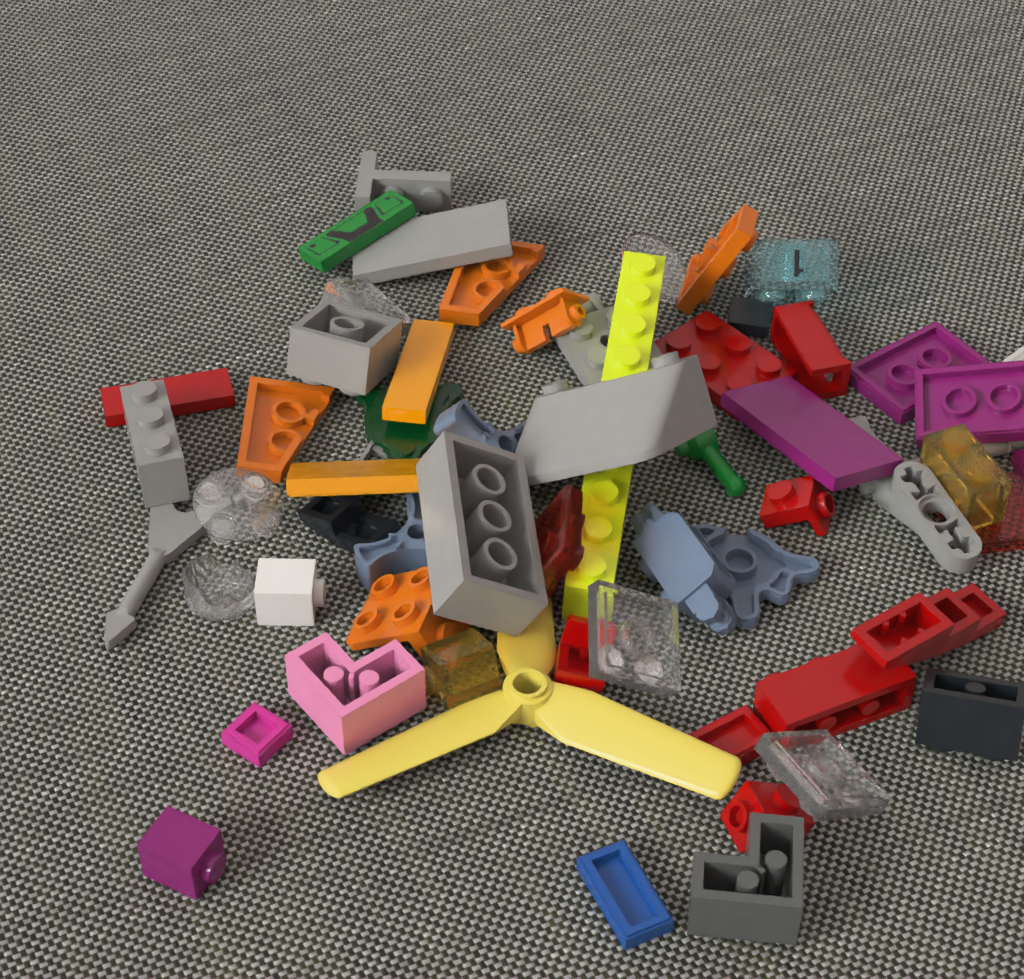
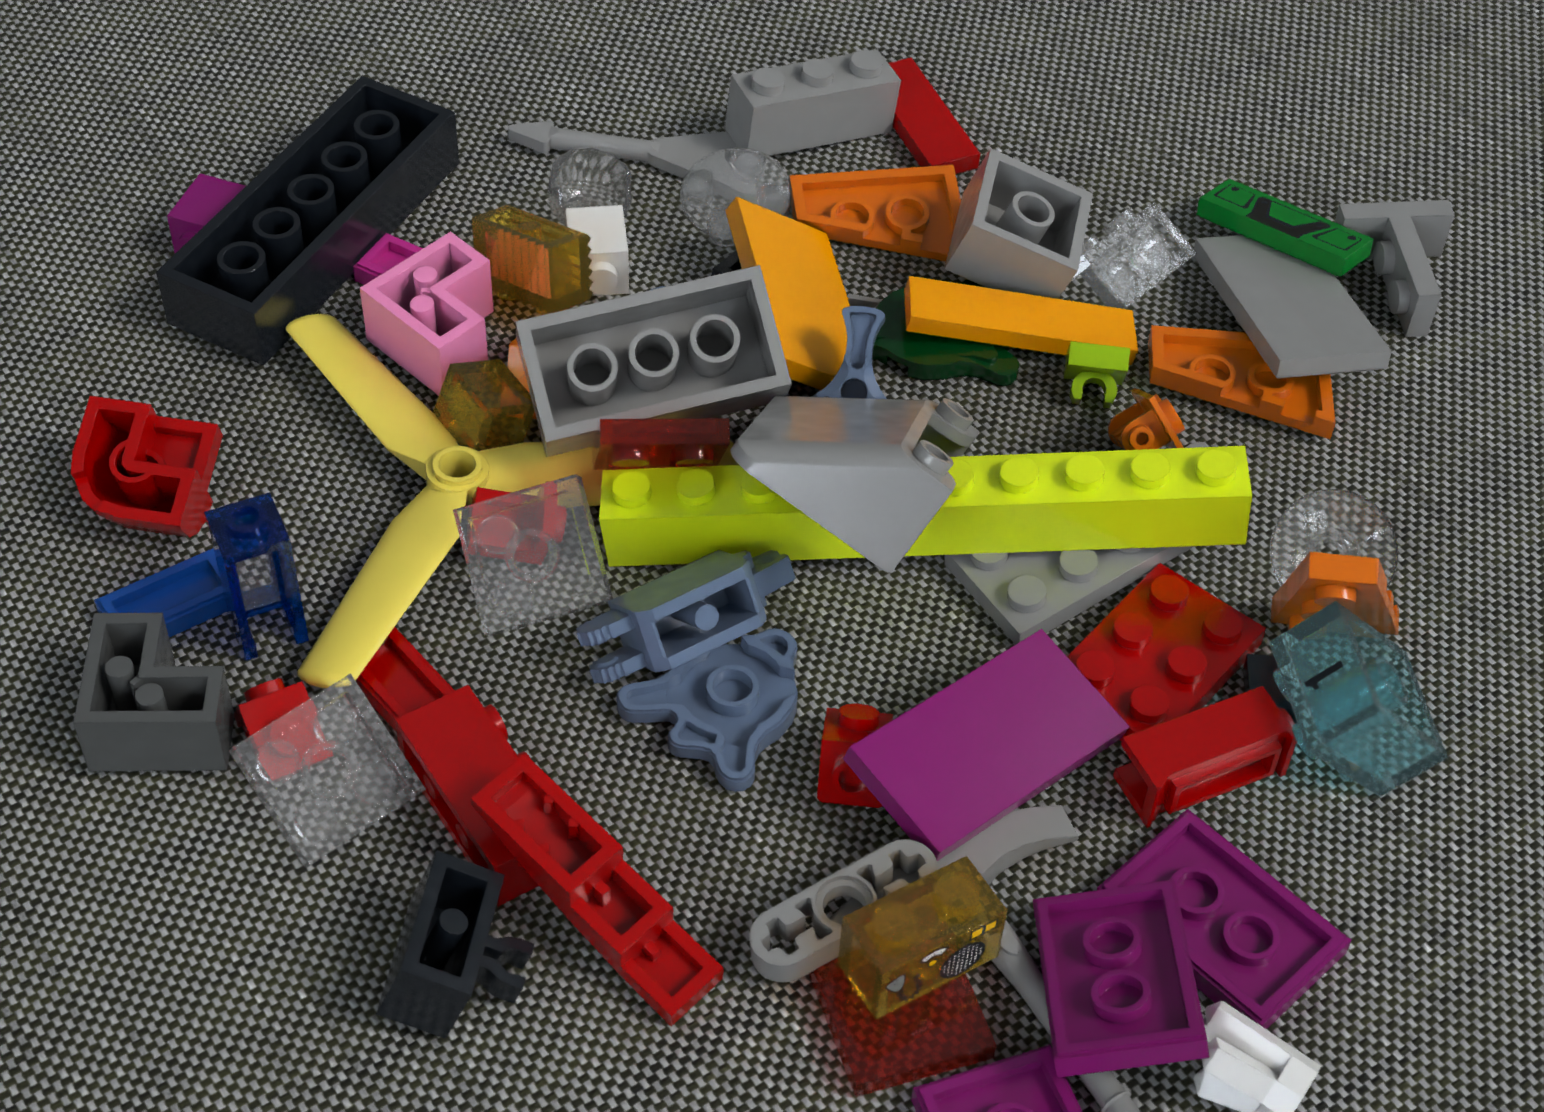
camera: 80 degrees right, 5 degrees up
(210, 762) = (308, 219): none -> black brick
(310, 608) = (534, 259): none -> clear yellow brick
(473, 344) = (1096, 365): none -> lime tile
(506, 889) = (145, 466): none -> red brick
(654, 796) = (256, 567): none -> clear blue window
(707, 448) = (959, 634): green piece -> none

